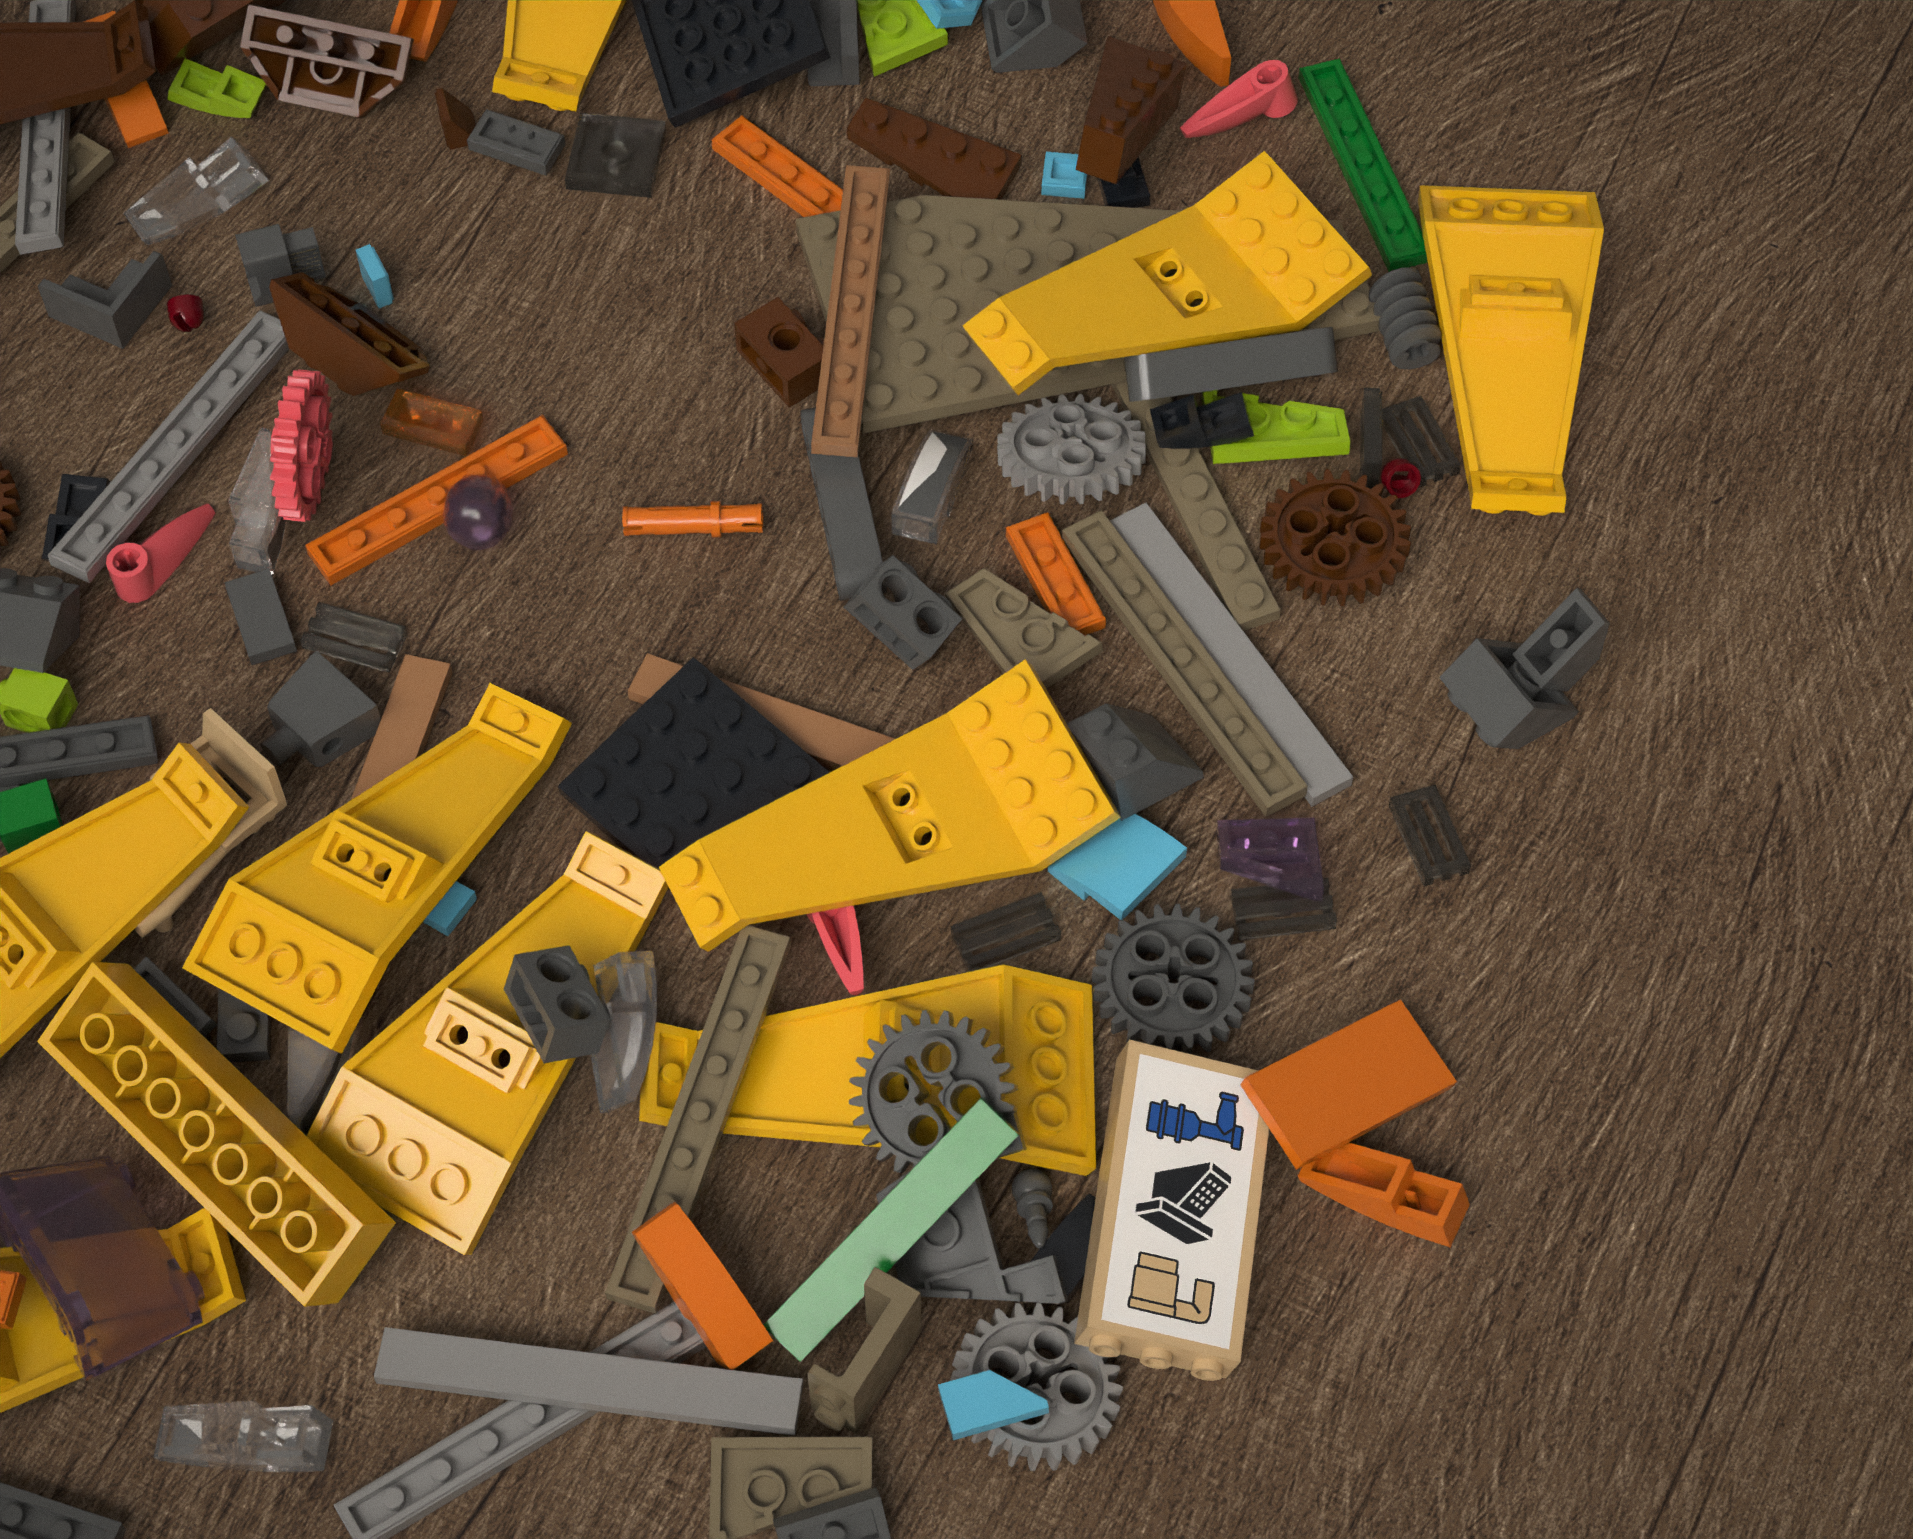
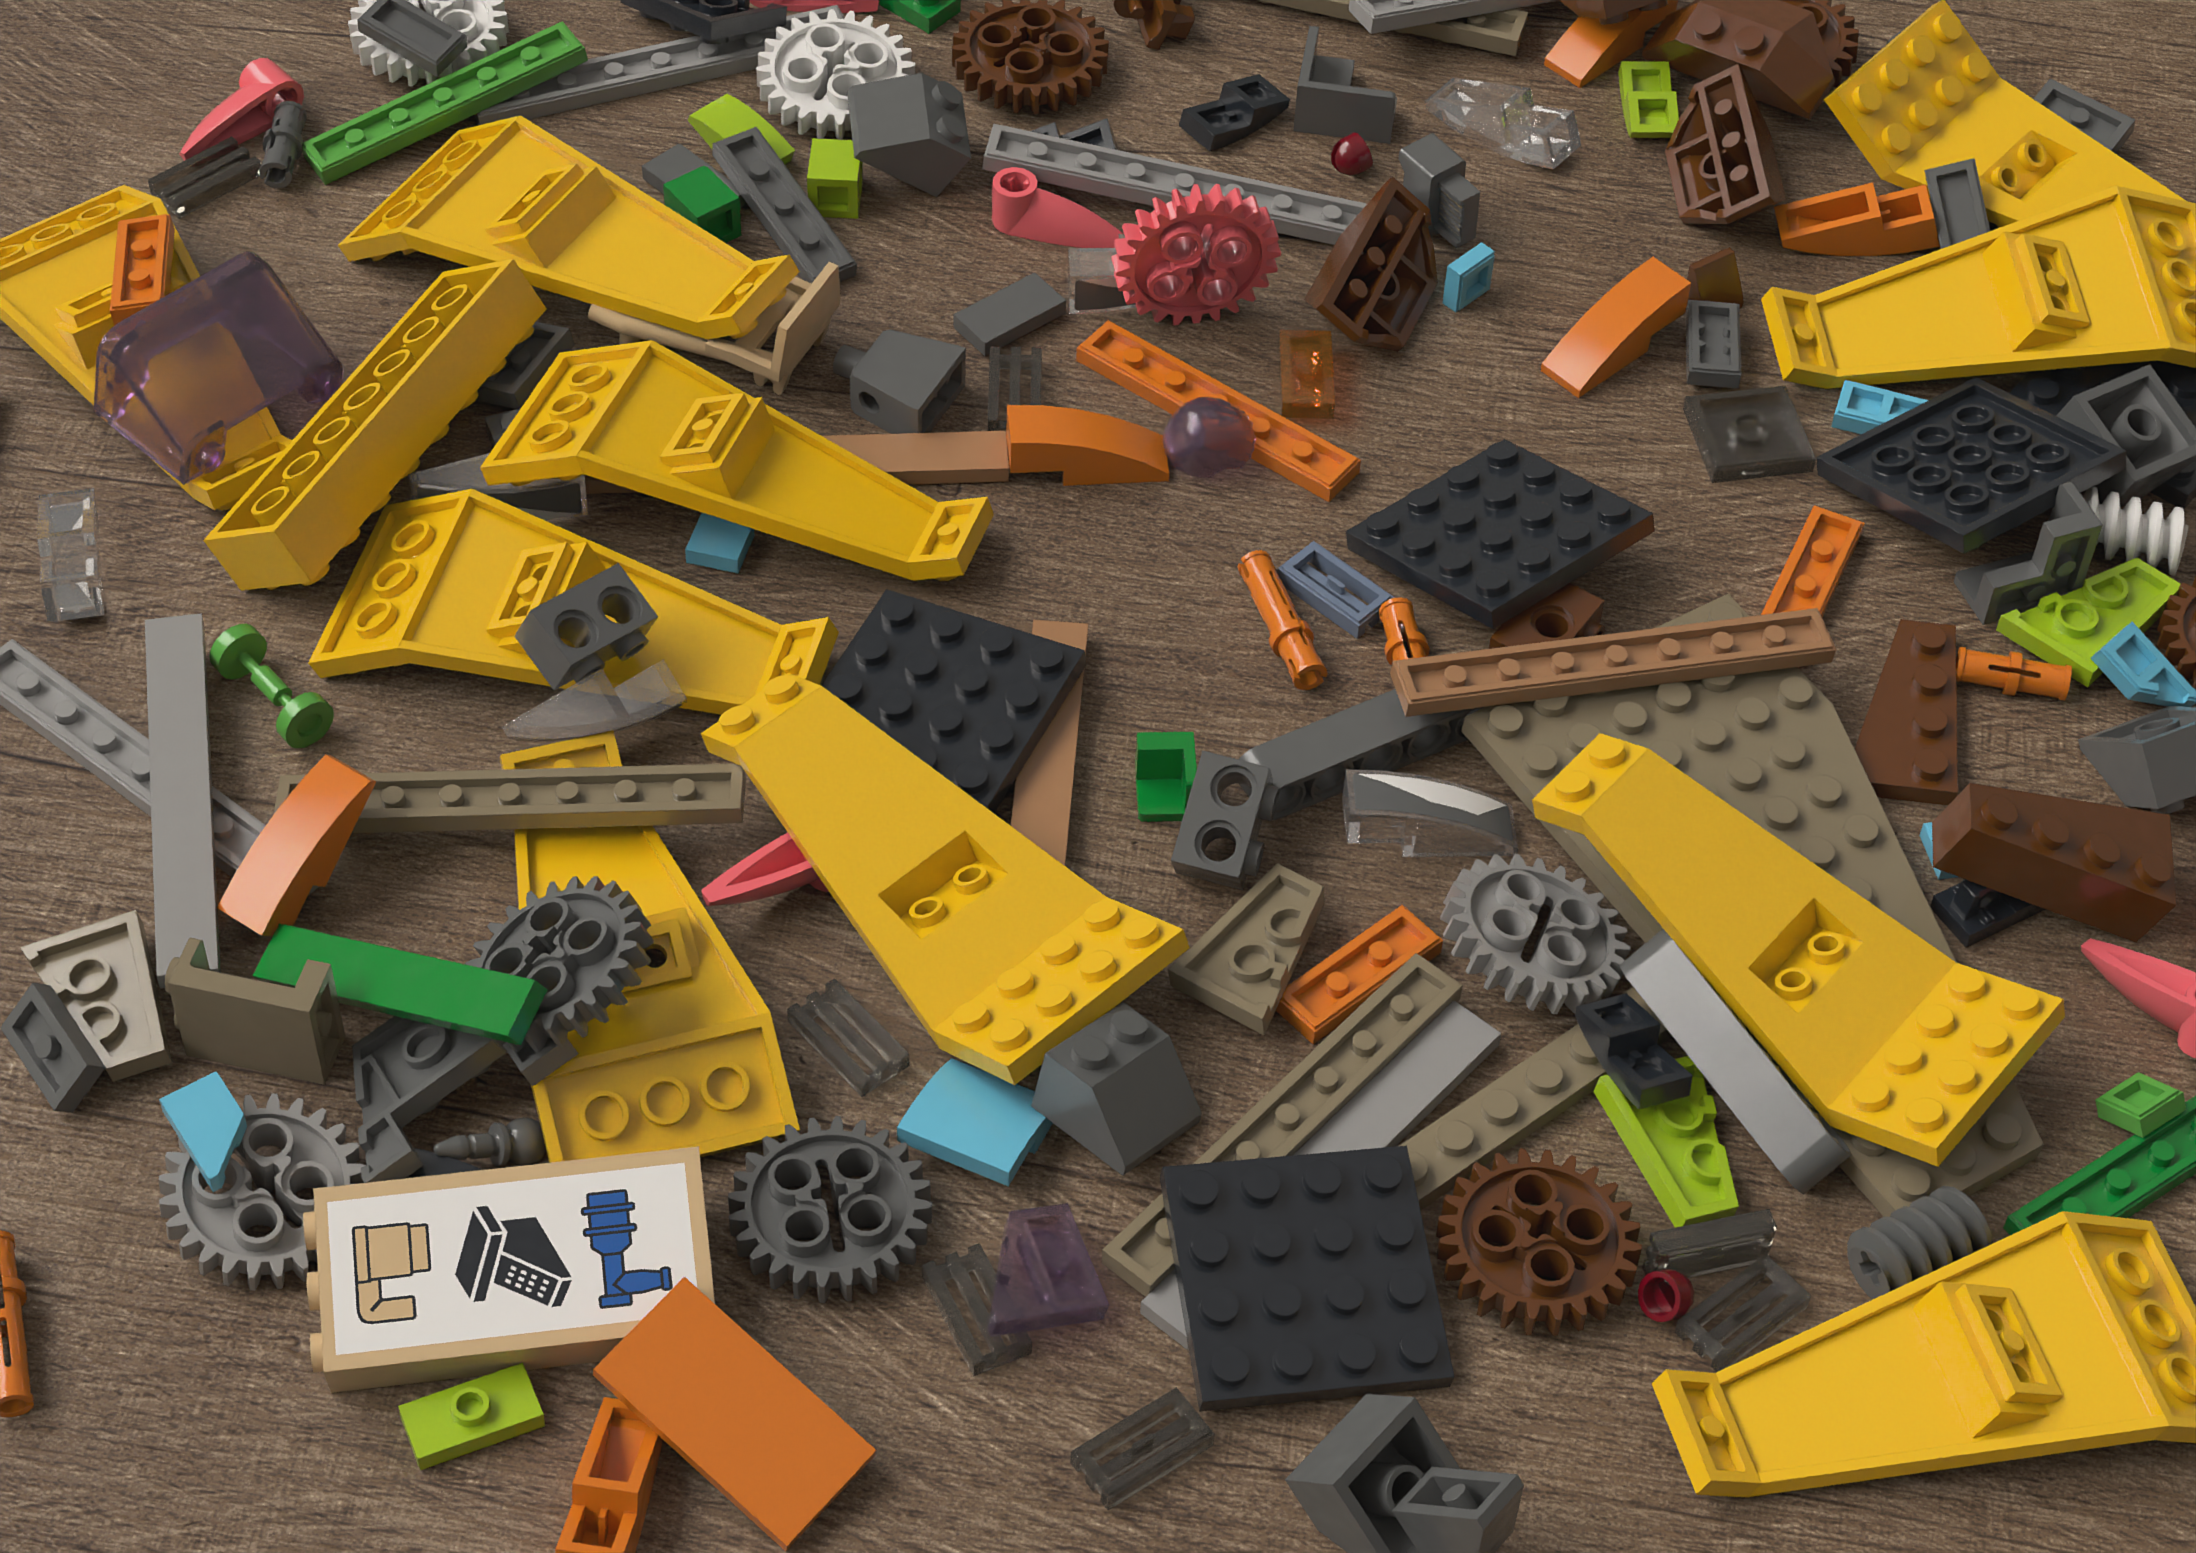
camera: 70 degrees right, 10 degrees down
(88, 382) = (1240, 111): none -> black slope
(451, 604) = (1083, 446): none -> orange slope
(477, 196) = (1618, 327): none -> orange slope
(482, 1288) = (302, 718): none -> bright green wheel
(624, 68) = (1866, 407): none -> medium azure tile
(672, 343) = (1499, 532): none -> black plate
(673, 481) = (1329, 592): none -> sand blue tile
(757, 445) = (1401, 626): none -> orange pin
(830, 643) = (1164, 774): none -> green panel
(923, 79) = (1979, 669): none -> orange pin
(1283, 1277) = (471, 1416): none -> lime plate
(1324, 155) = (2140, 1104): none -> bright green tile
(1327, 687) = (1305, 1278): none -> black plate

